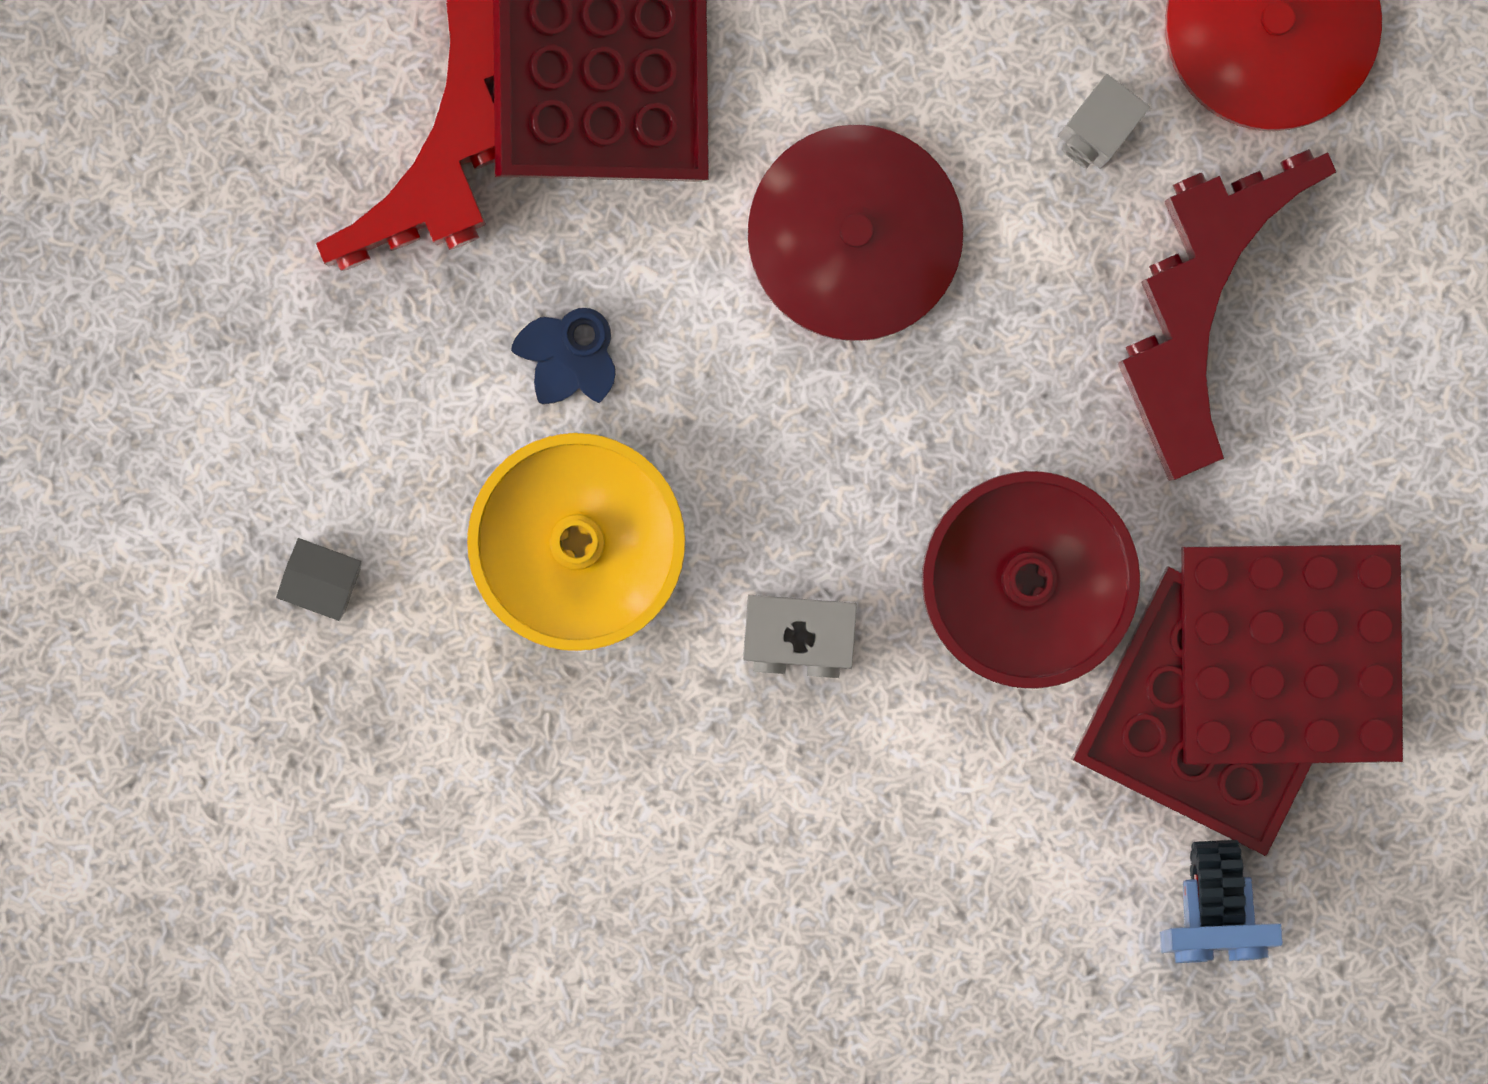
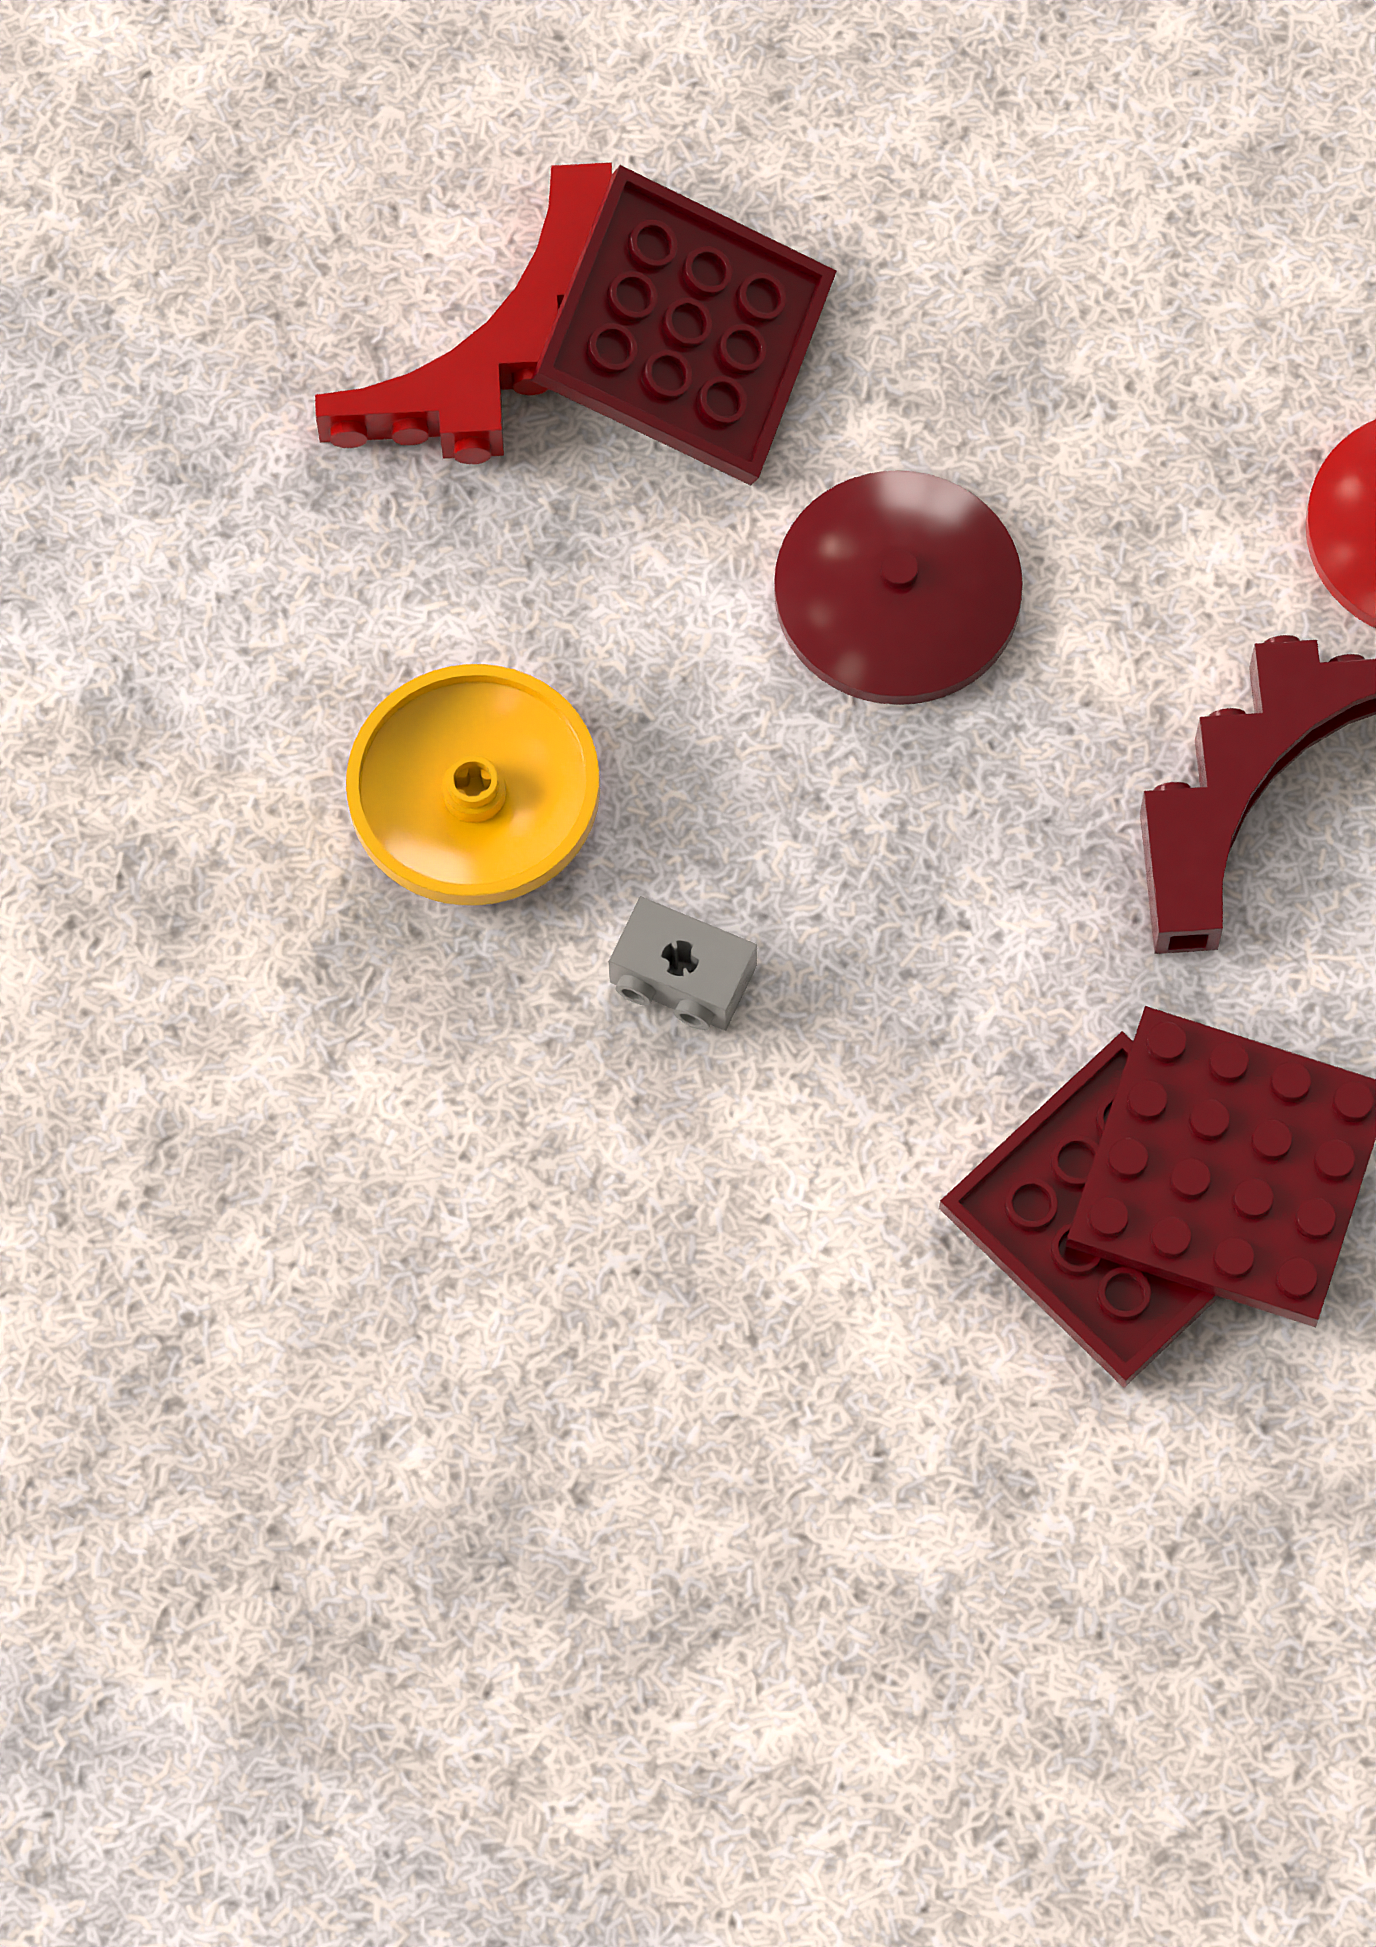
camera: 20 degrees right, 20 degrees down
(319, 579) = (181, 737): dark grey piece -> none
(562, 362) = (533, 613): dark blue plate -> none
(1030, 579) = (961, 988): dark red dish -> none
(1102, 123) = (1206, 545): light grey brick -> none
(1219, 910) = (1046, 1422): plate -> none

